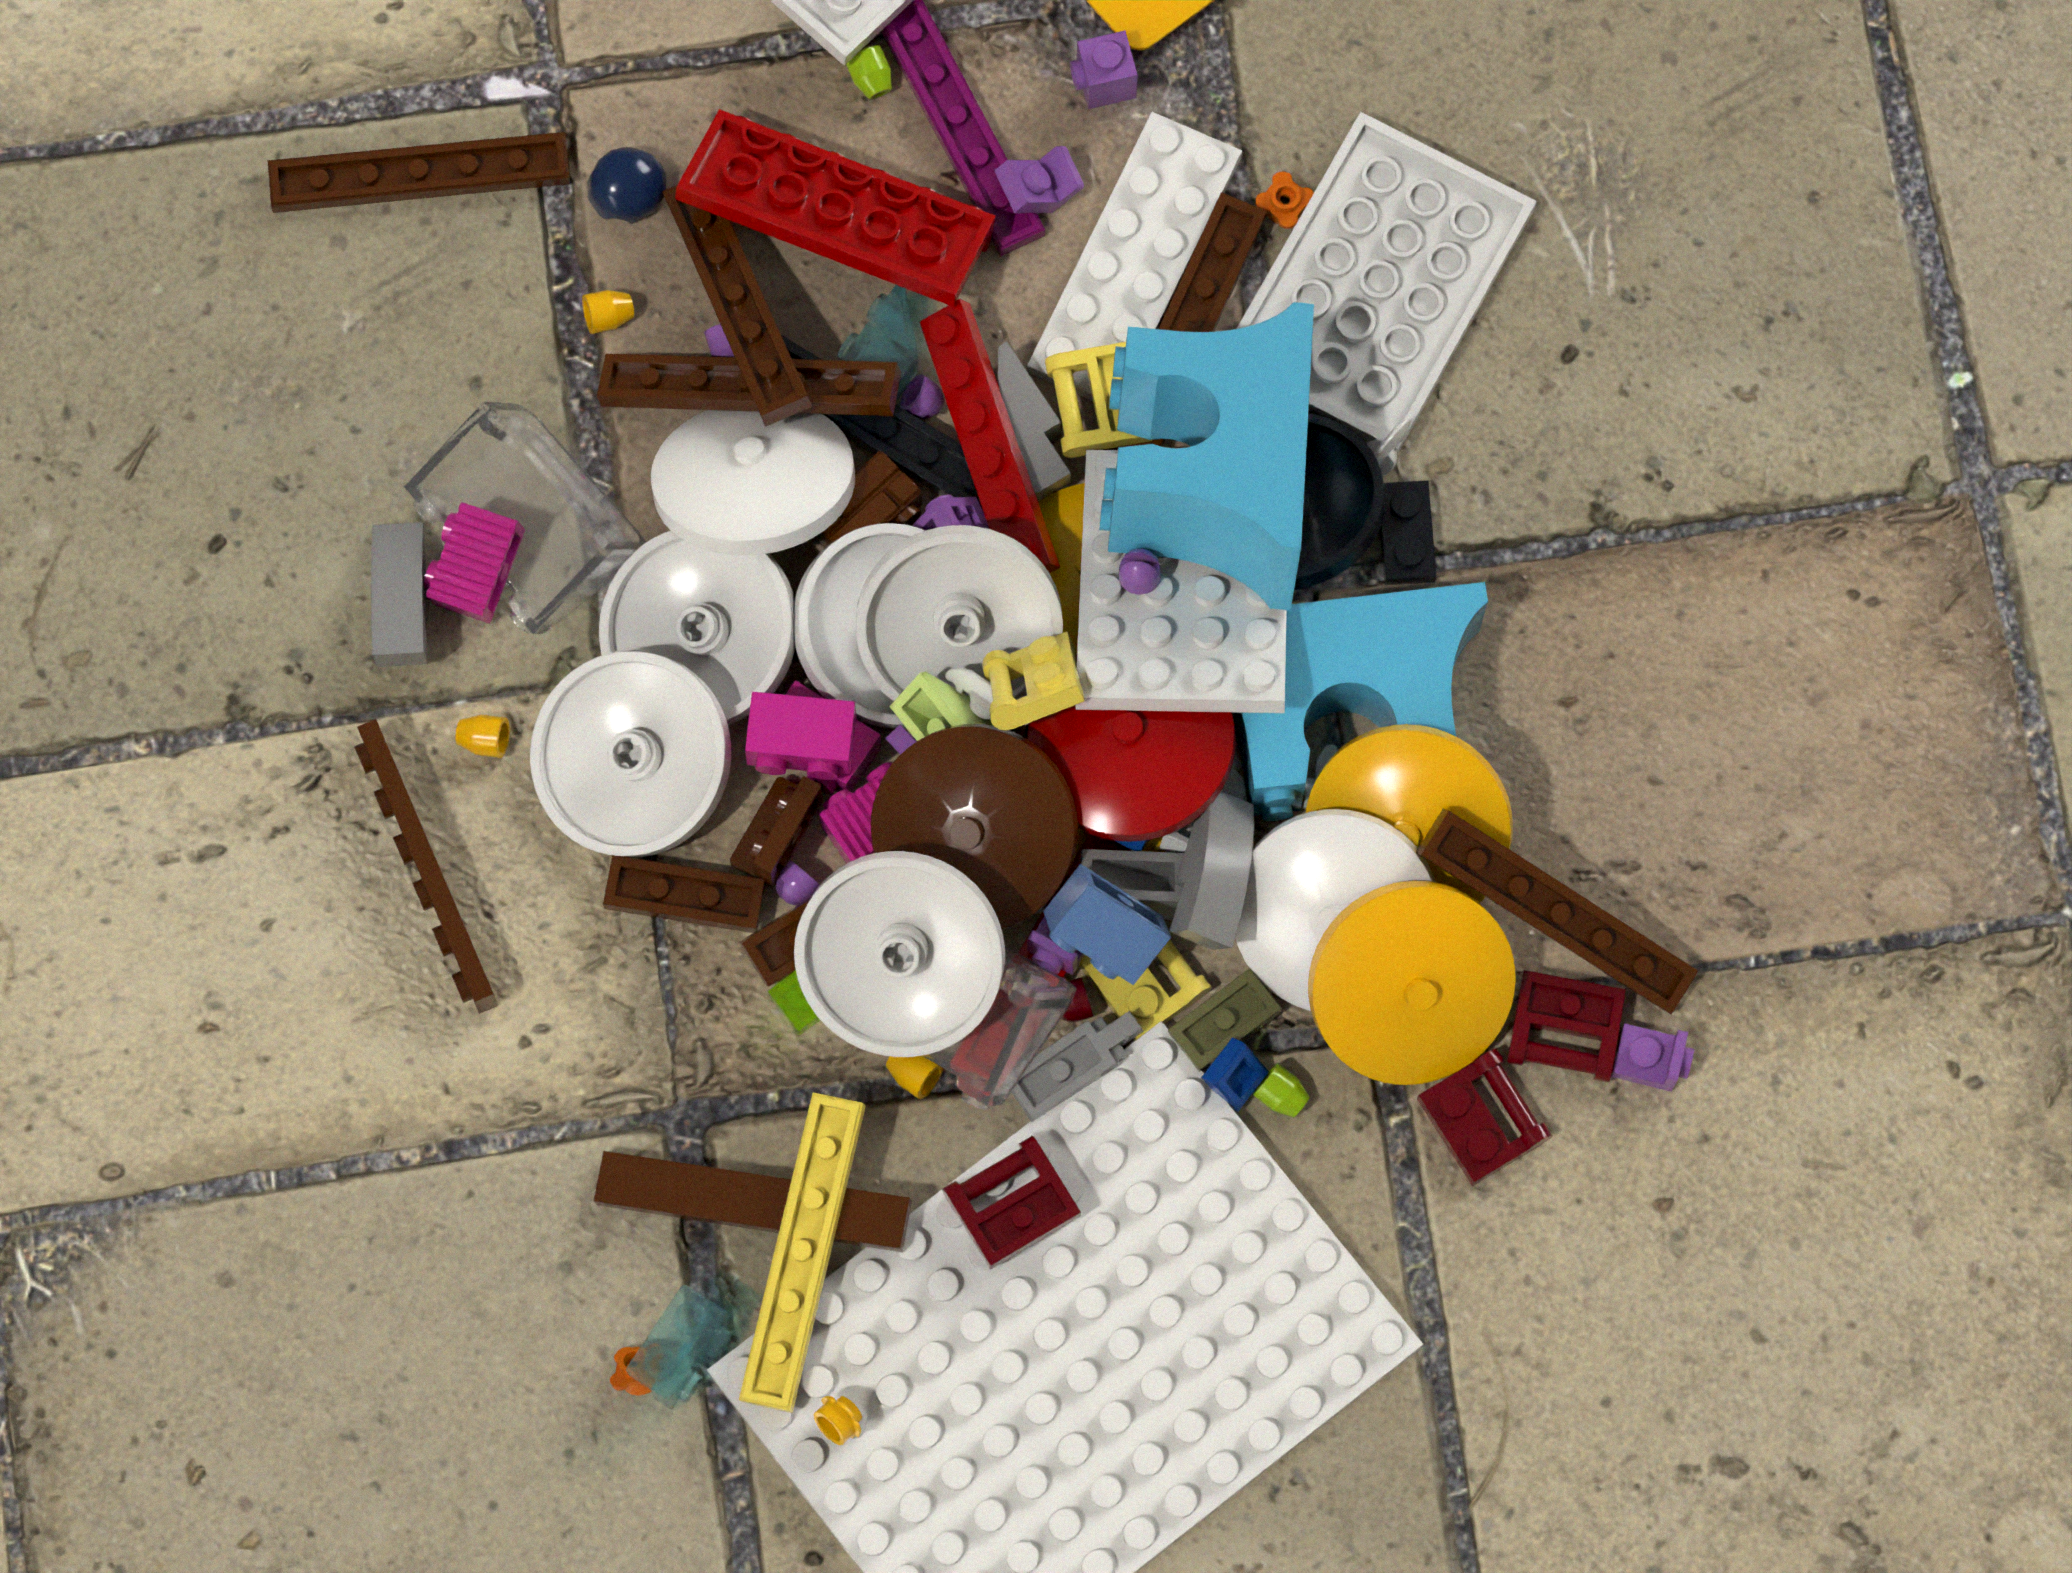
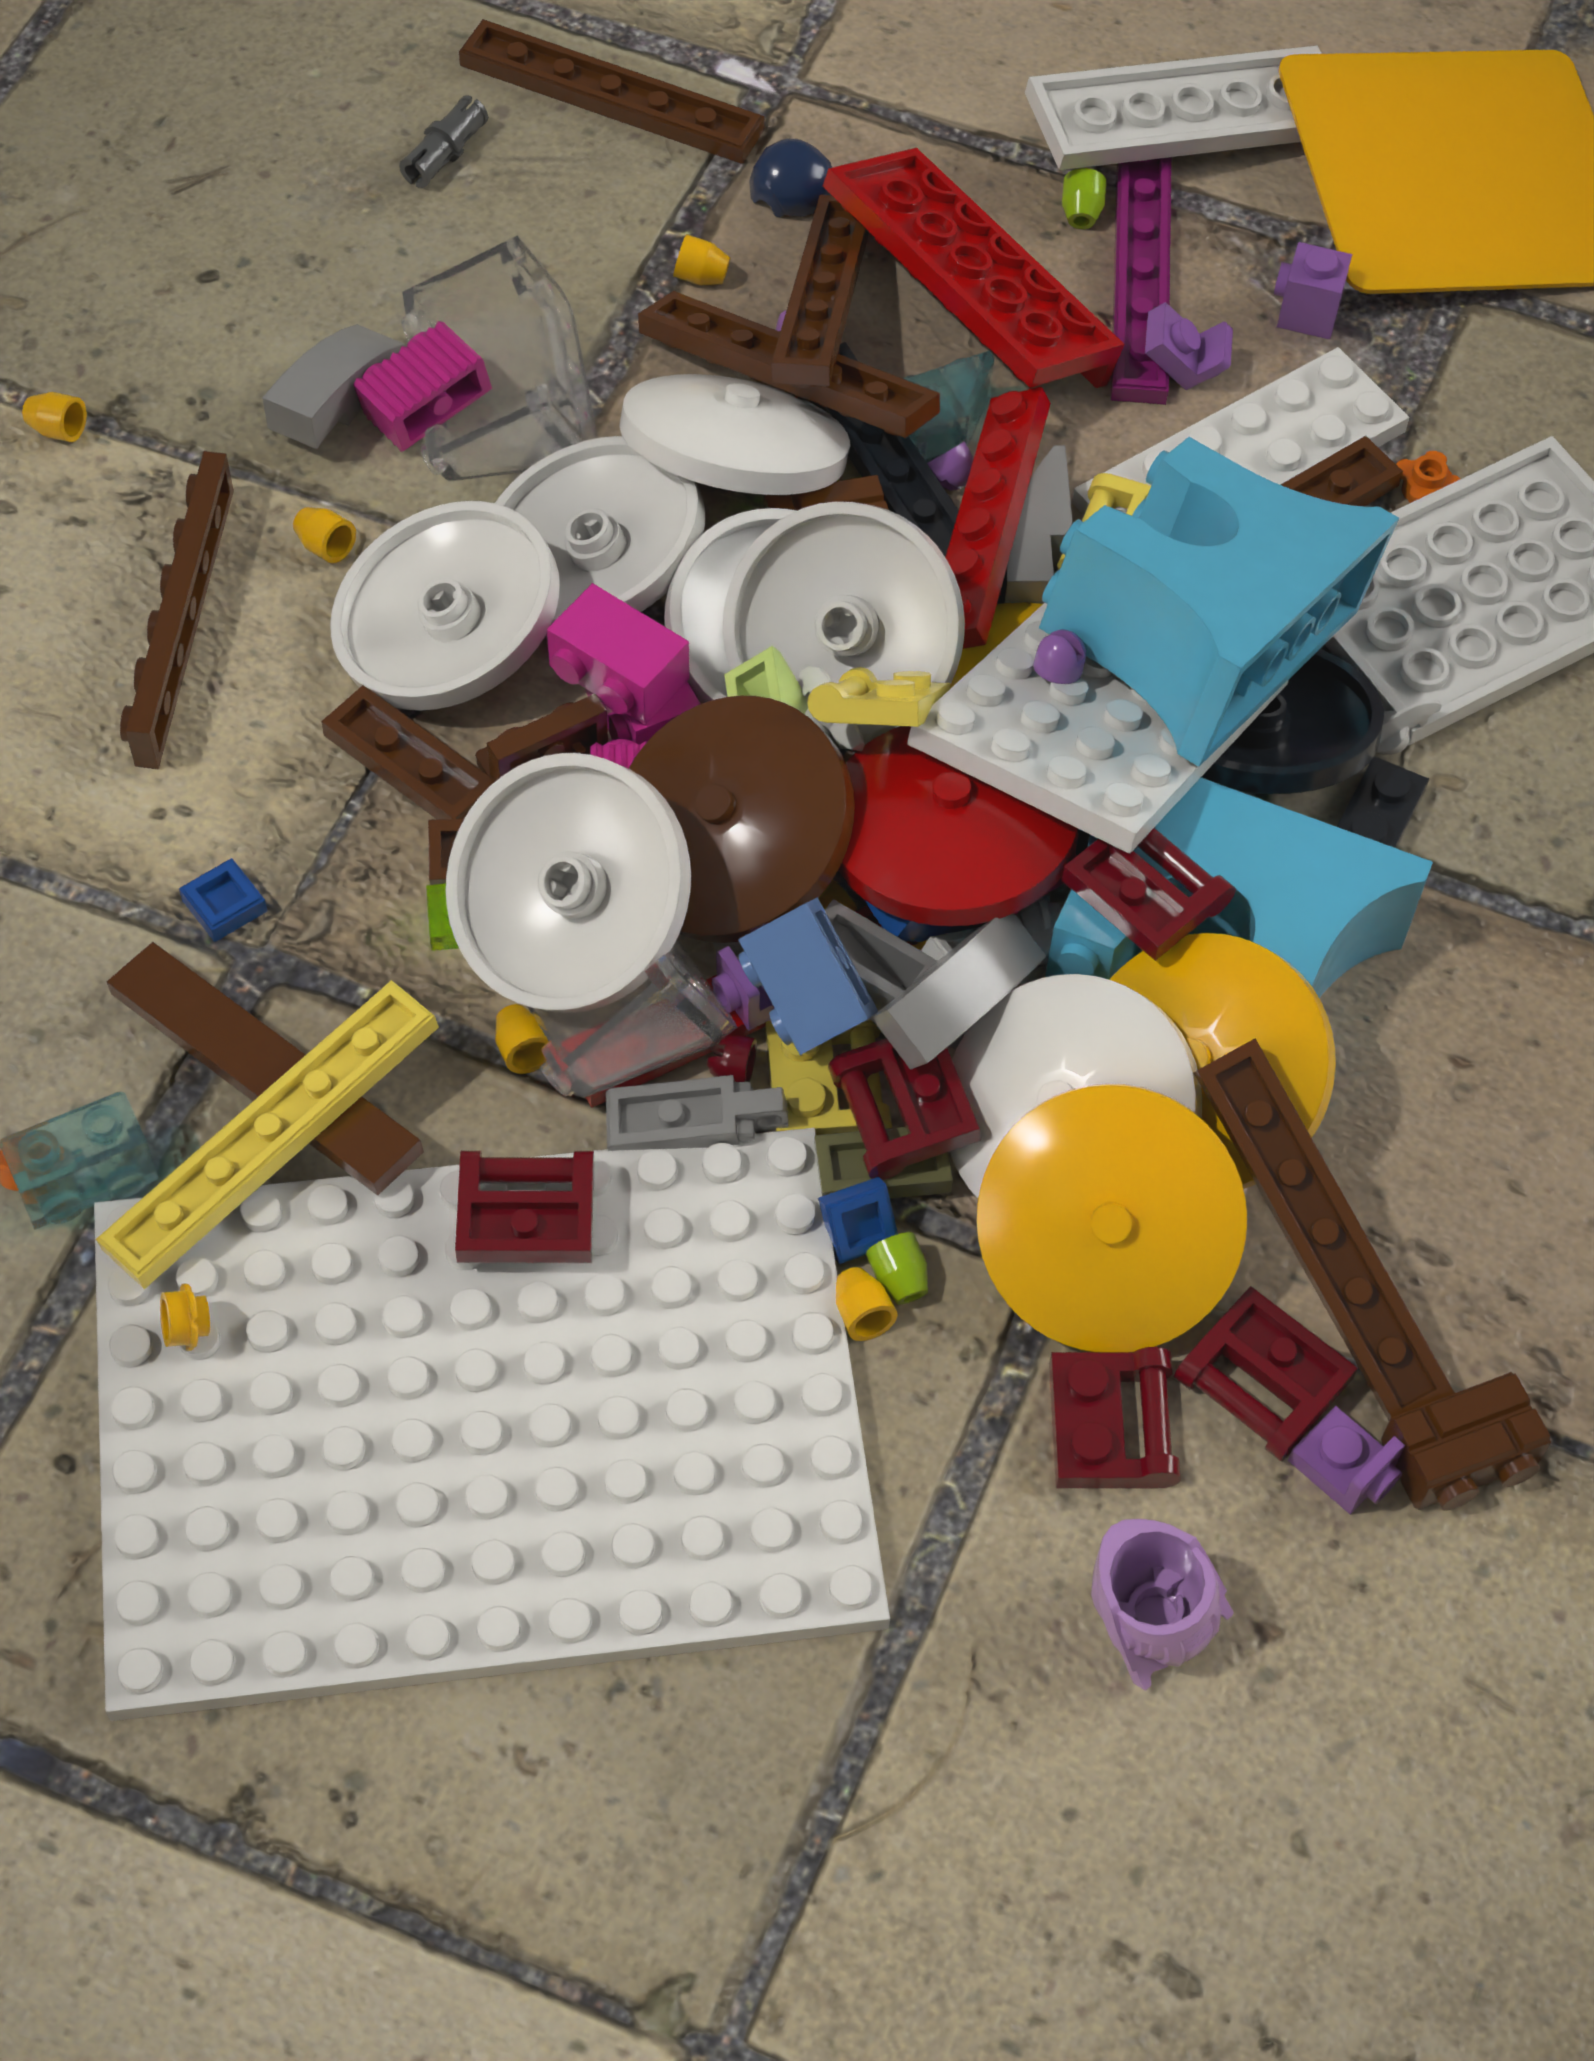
camera: 30 degrees right, 15 degrees down
(199, 750) = (56, 415): none -> yellow hose
(321, 305) = (443, 141): none -> dark grey pin
(625, 1085) = (223, 900): none -> blue tile
(1242, 969) = (926, 1096): none -> dark red plate
(1272, 1132) = (863, 1304): none -> yellow hose
(1305, 737) = (1142, 899): none -> dark red plate
(1588, 1234) = (1156, 1595): none -> lavender helmet
(1723, 1000) = (1468, 1443): none -> reddish brown brick

